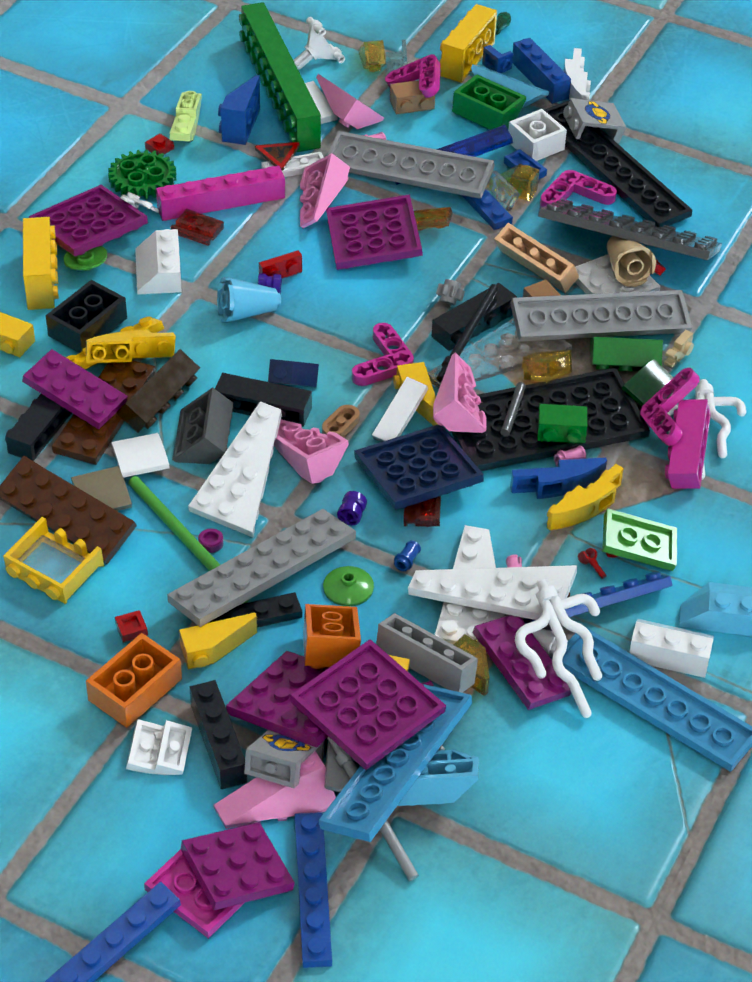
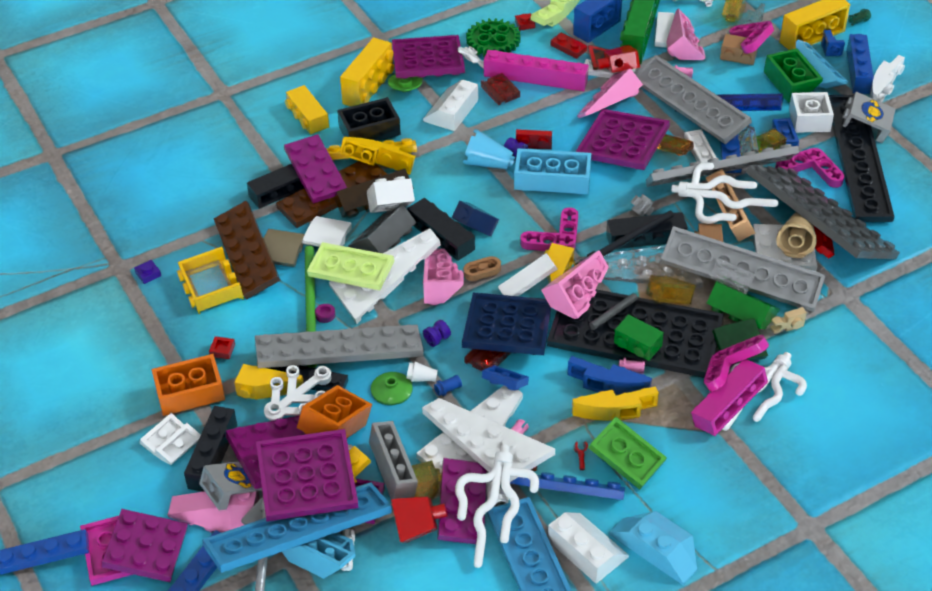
camera: 35 degrees right, 0 degrees up
(190, 382) = (387, 195): none -> white brick
(208, 476) = (351, 266): none -> yellowish green plate
(229, 154) = (568, 45): none -> red plate
(265, 635) = (294, 395): none -> white plant
(308, 147) = (619, 59): none -> red torso
(332, 292) = (552, 171): none -> medium azure brick
(367, 555) = (421, 373): none -> white cone
(461, 217) = (702, 150): none -> white tile
(473, 520) = (505, 377): none -> blue plate
(498, 220) = (731, 163): none -> light grey plate
(499, 696) = (416, 517): none -> red torso
(506, 253) = (702, 190): none -> white plant
(602, 325) = (732, 276): none -> clear plate

